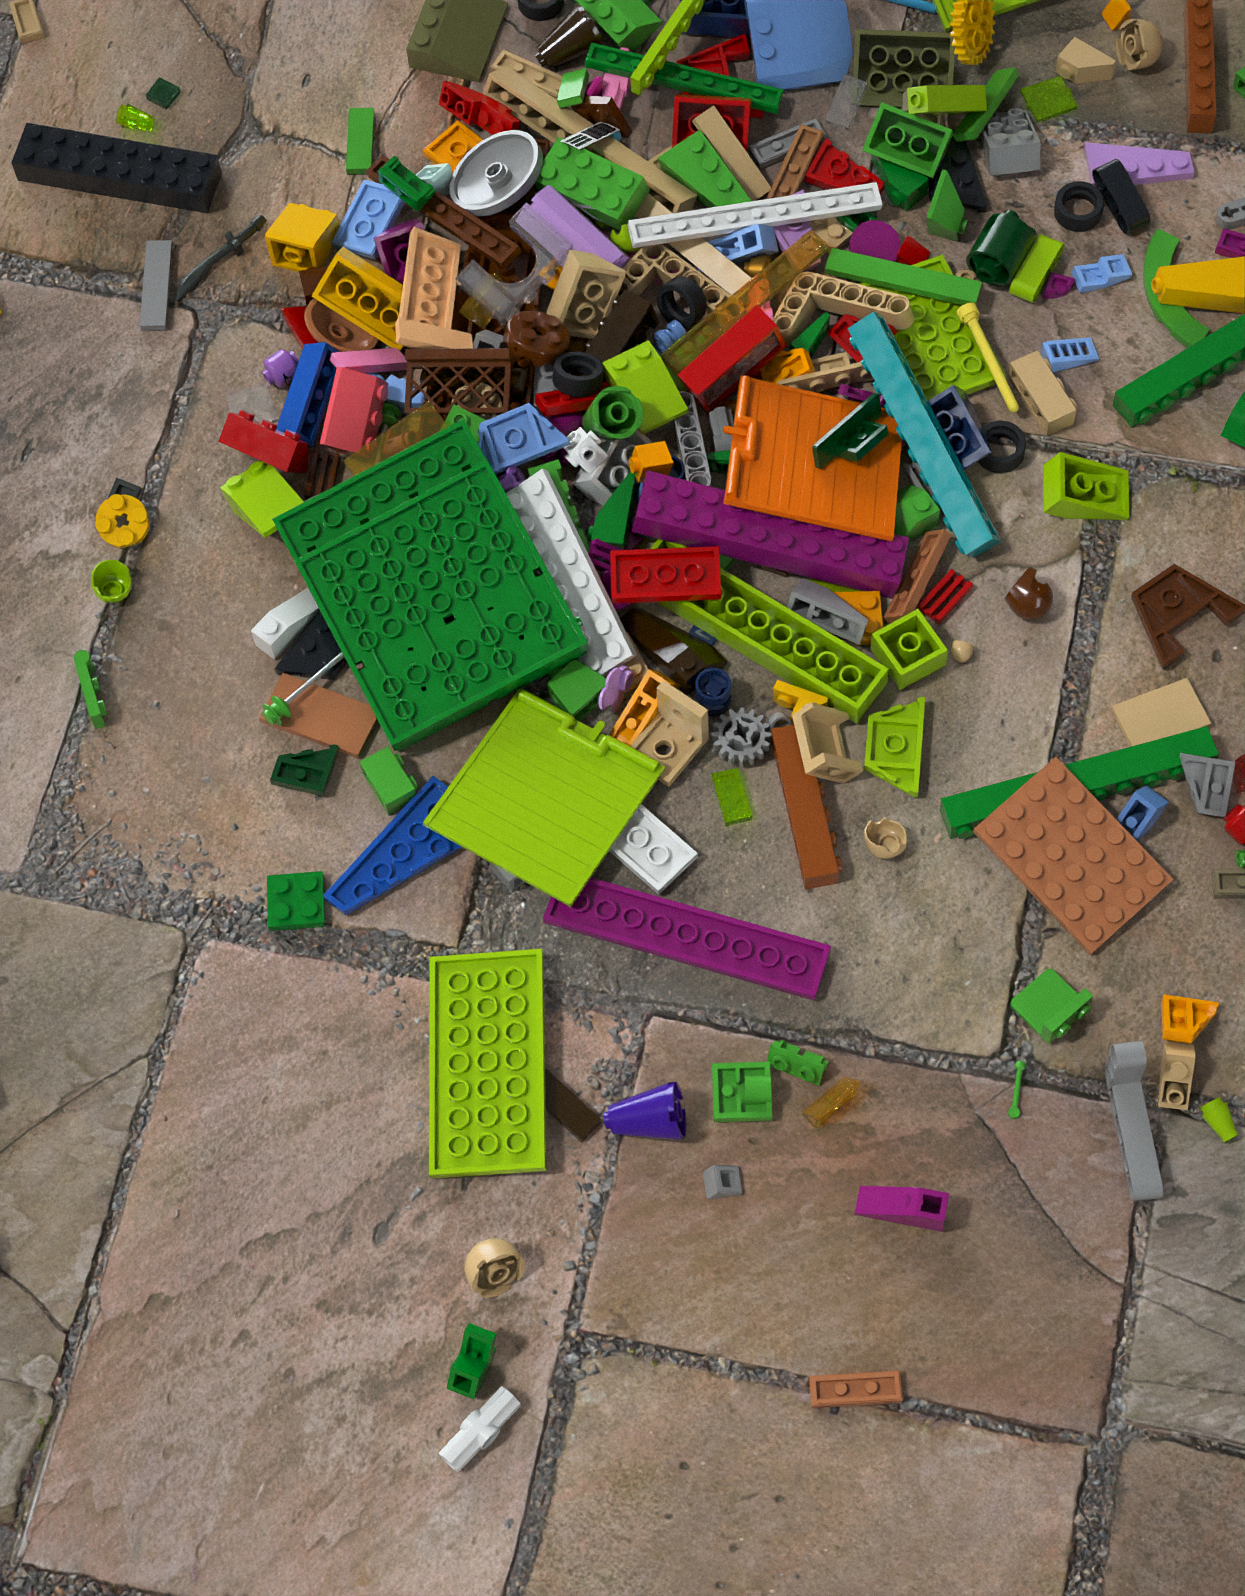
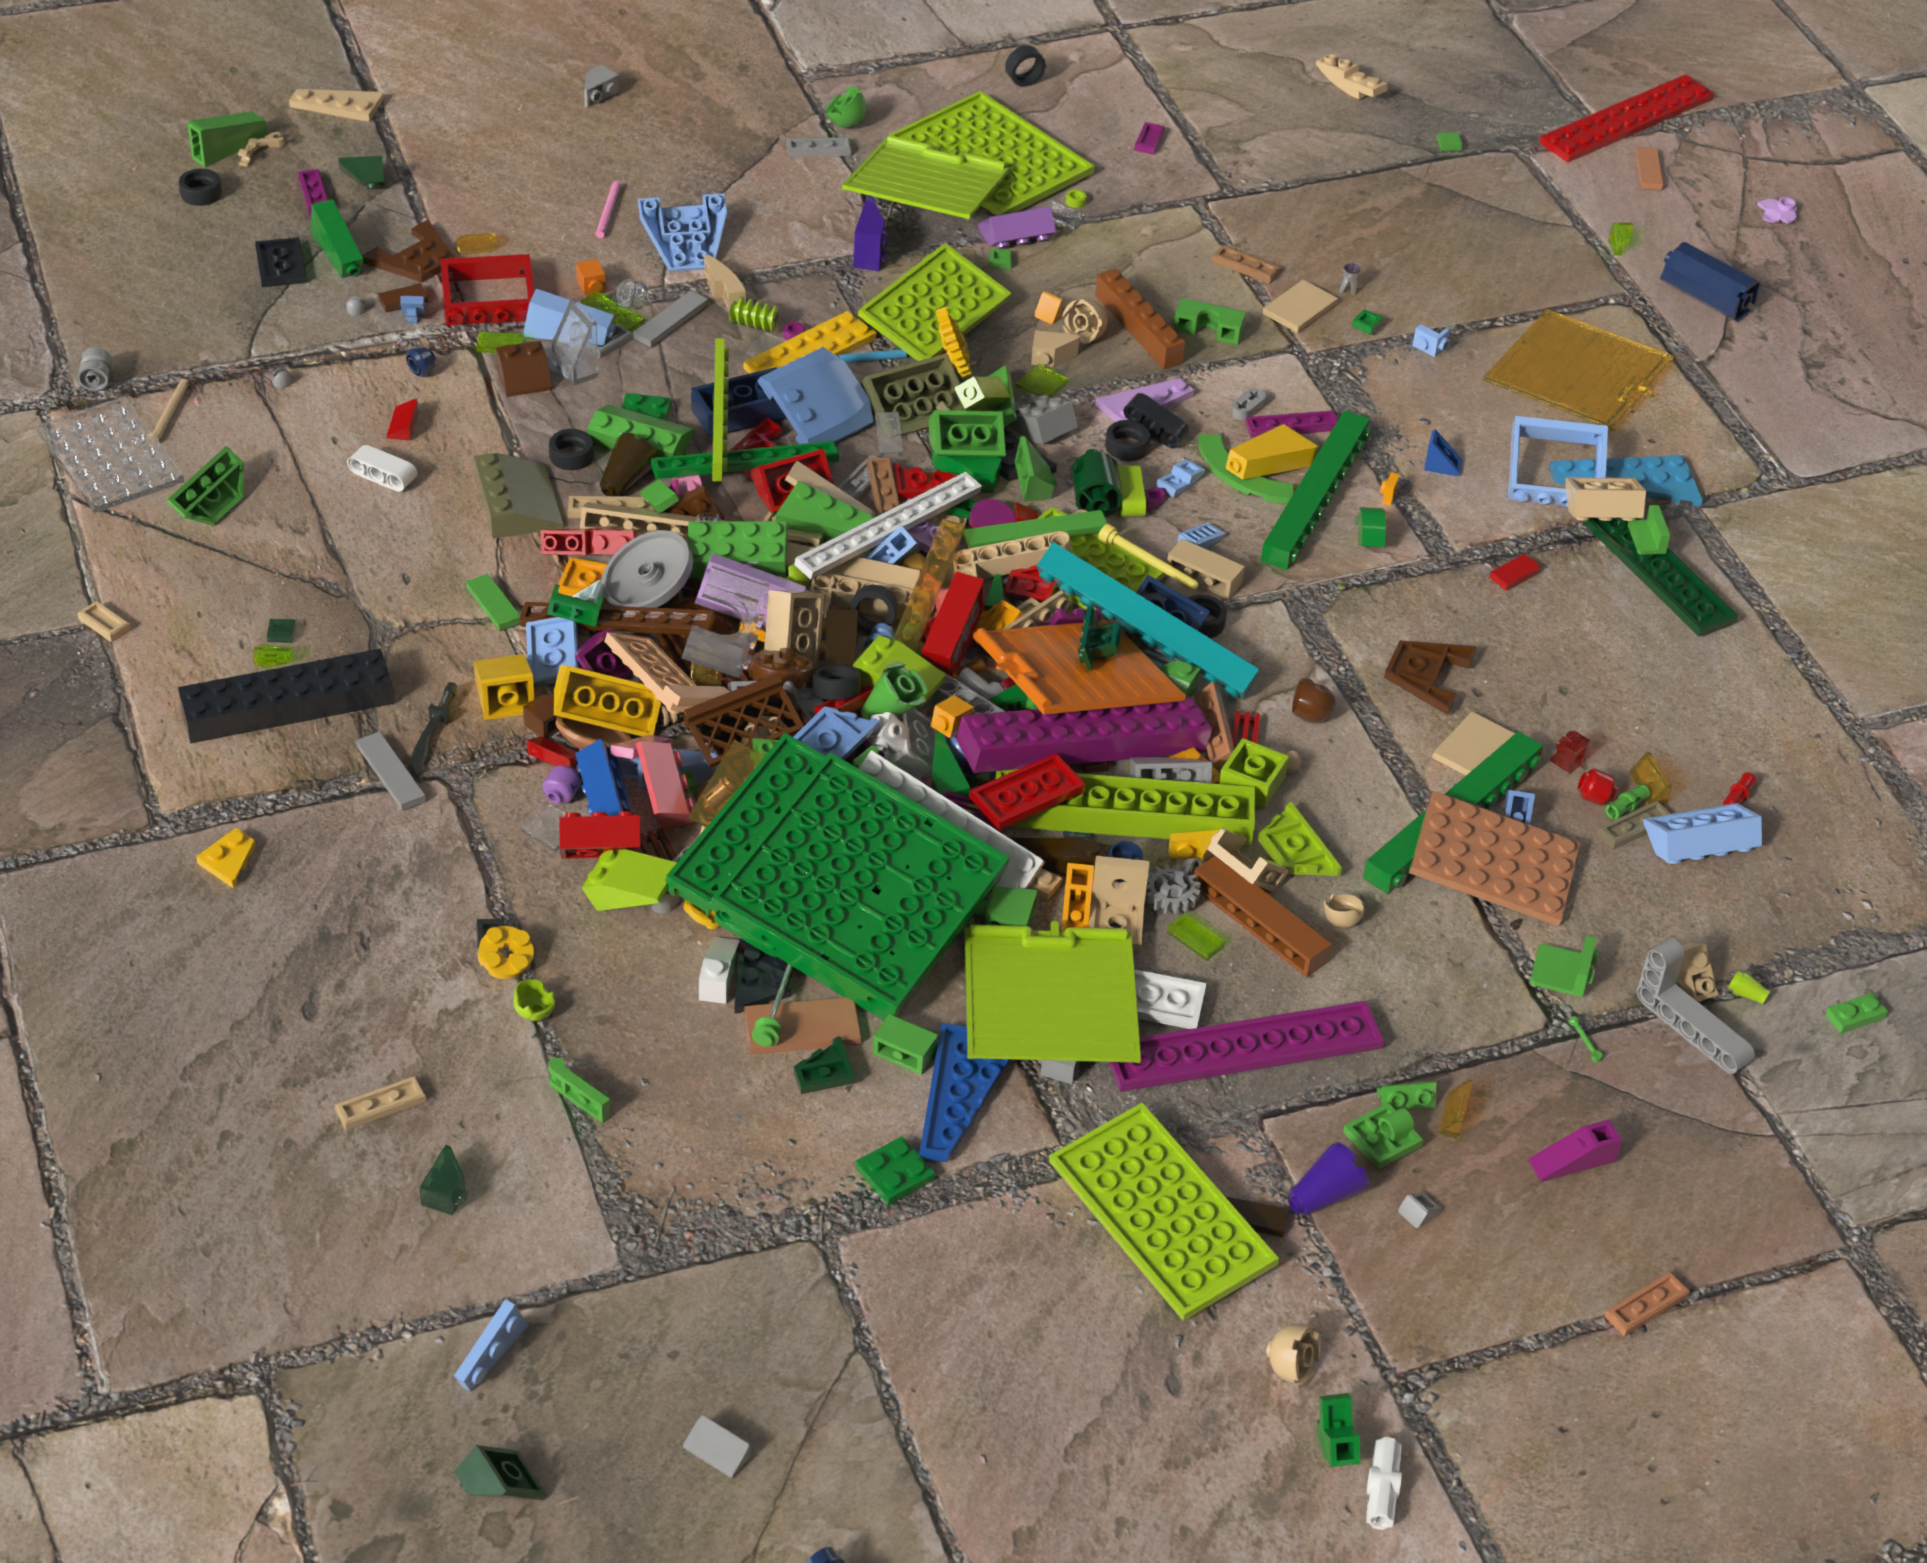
camera: 40 degrees left, 20 degrees down
(617, 682) = (1044, 889): lavender plate -> none
(1084, 489) = (1289, 619): lime slope -> none
(1185, 1017) = (1665, 927): light orange wing -> none
(1208, 782) = (1550, 768): light grey wing -> none

